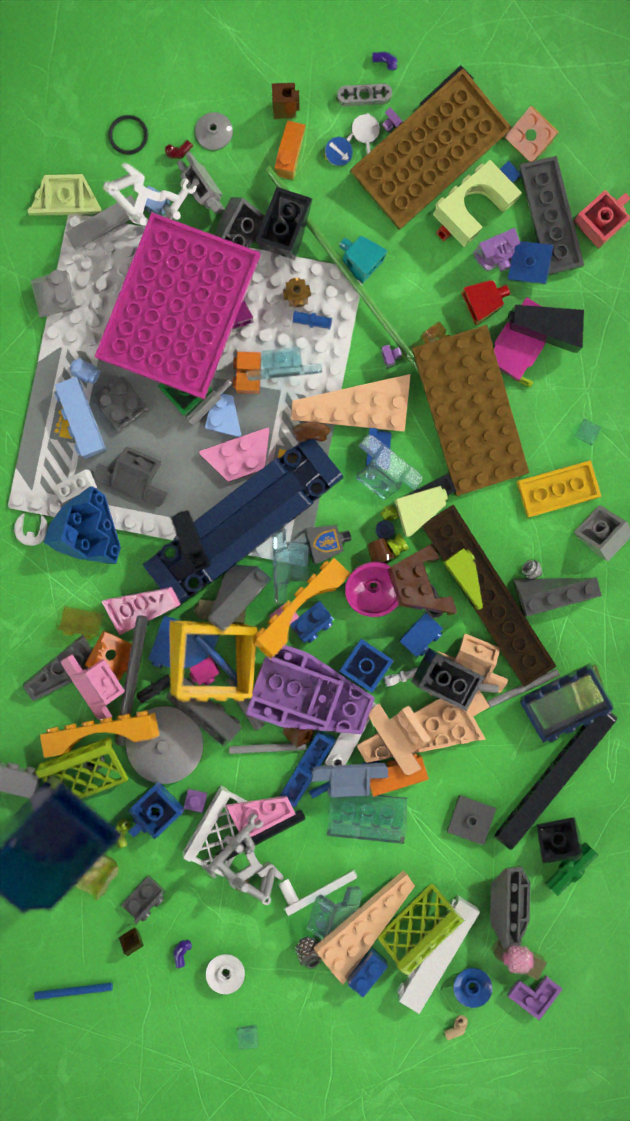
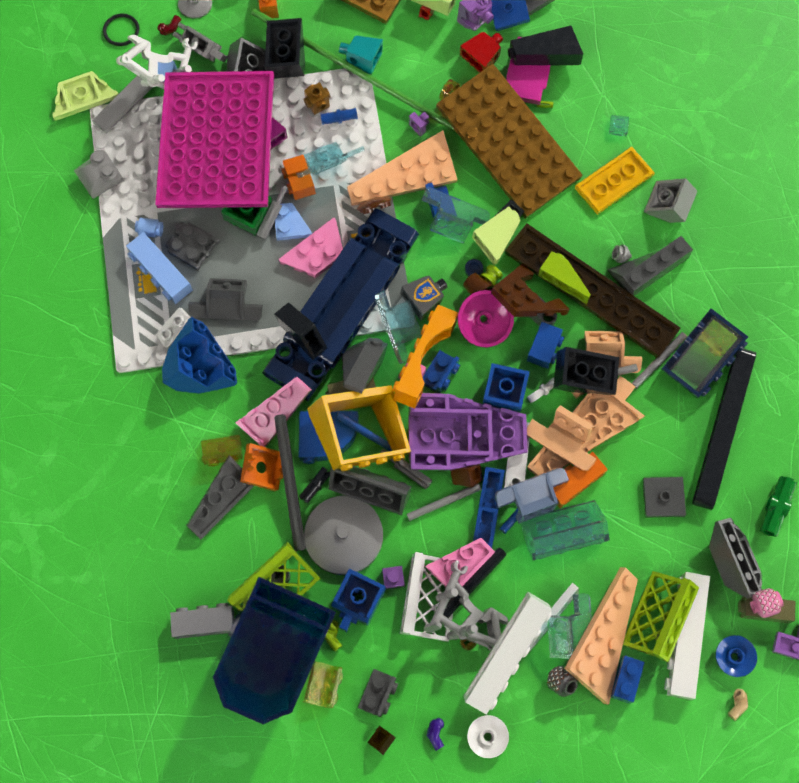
camera: 15 degrees left, 15 degrees down
(29, 539) = (147, 393): white head -> none
(95, 684) = (255, 498): bright pink plate -> none
(135, 728) = (243, 564): light orange arch -> none
(204, 672) = (356, 448): dark pink brick -> none
(269, 914) = (507, 653): none -> white brick
(389, 513) = (472, 251): lime plate -> none
(560, 840) = (755, 481): black slope -> none

